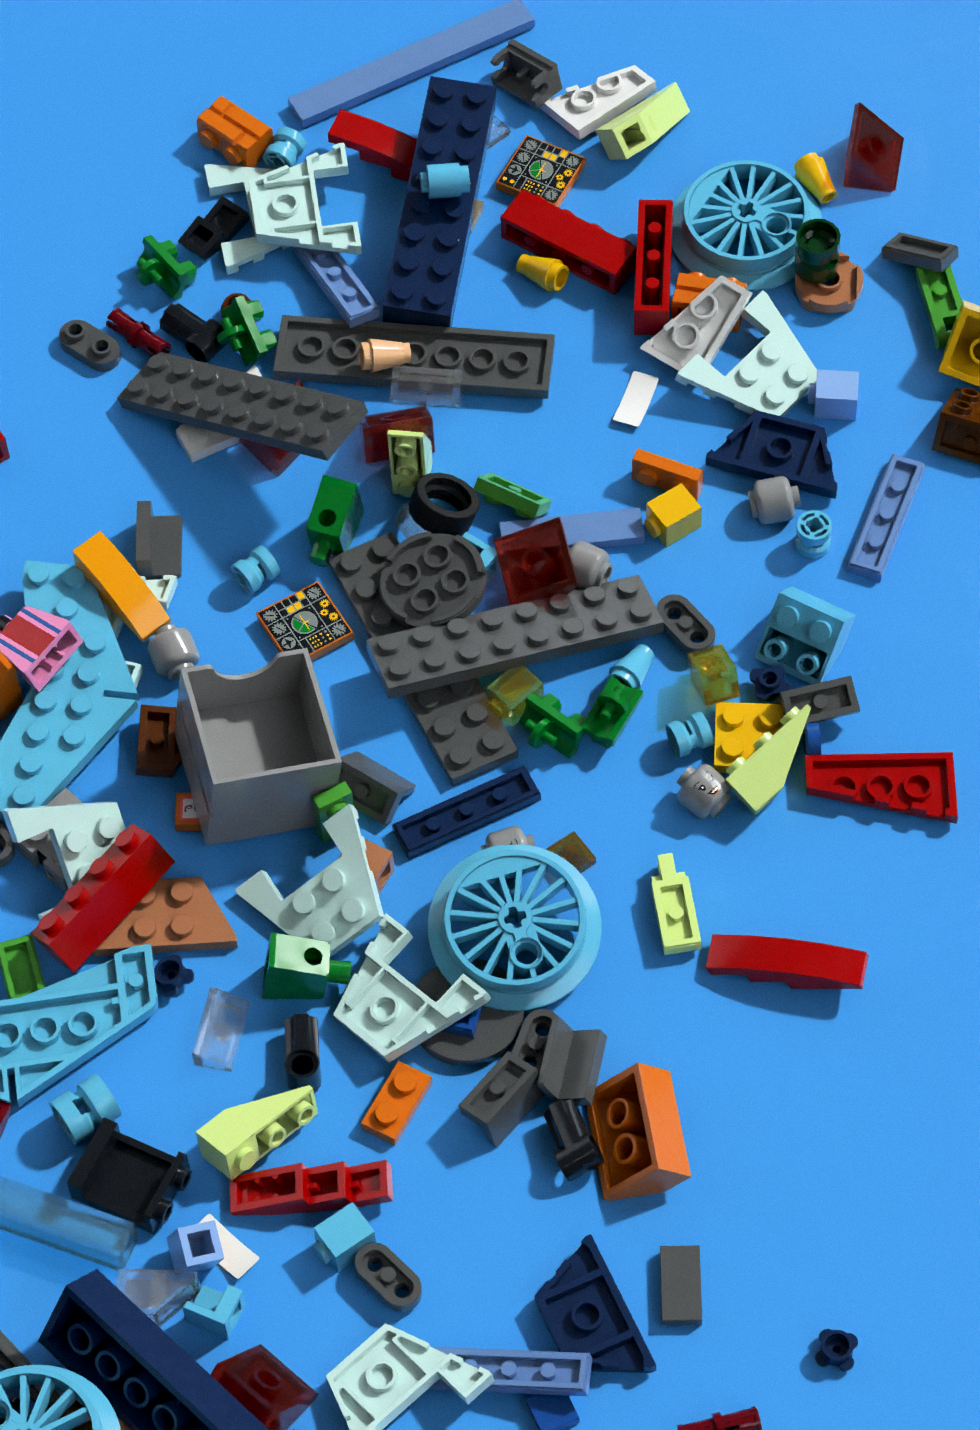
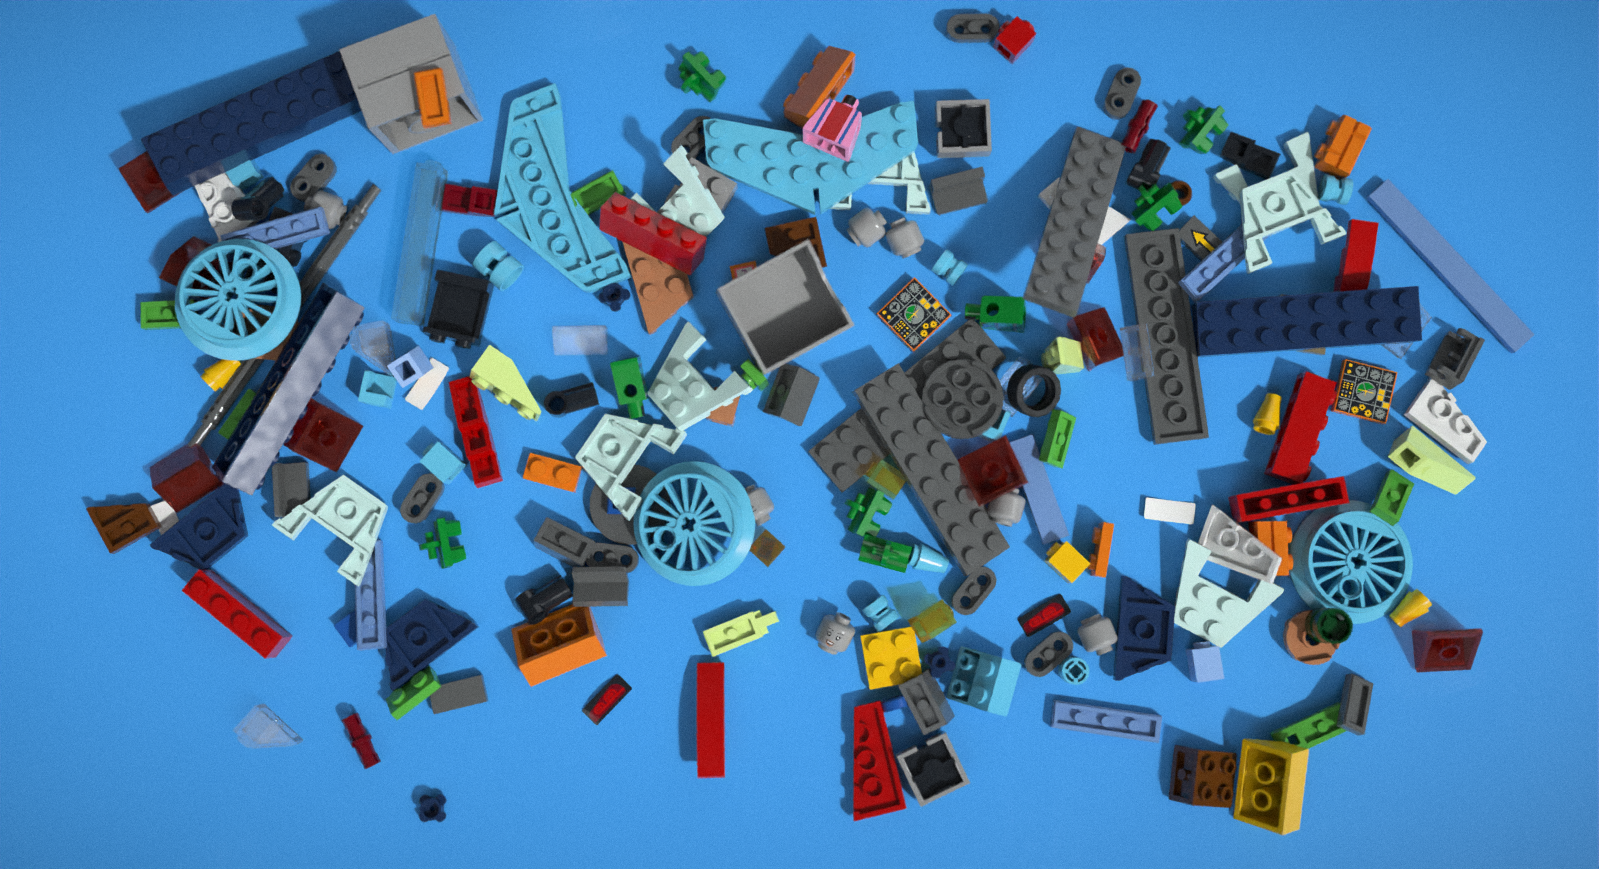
camera: 75 degrees right, 25 degrees up
(75, 513) = (963, 128): none -> piece
(120, 586) = (904, 175): light orange slope -> none
(201, 611) = (904, 238): none -> light grey head
(301, 300) = (1198, 238): none -> dark grey tile
(383, 354) = (1154, 313): light nougat cone -> none
(445, 180) = (1314, 322): medium azure brick -> none
(460, 1258) = (447, 554): none -> green hips
(466, 812) = (787, 467): dark blue tile -> none
(665, 1339) = (413, 692): none -> bright green plate
(677, 166) = (1392, 497): none -> bright green plate
(732, 1096) = (606, 699): none -> sticker
(736, 559) = (1044, 615): none -> sticker
(766, 770) = (857, 676): yellowish green slope -> none
(788, 561) = (1048, 655): none -> dark grey plate
(906, 712) = (932, 769): none -> black piece

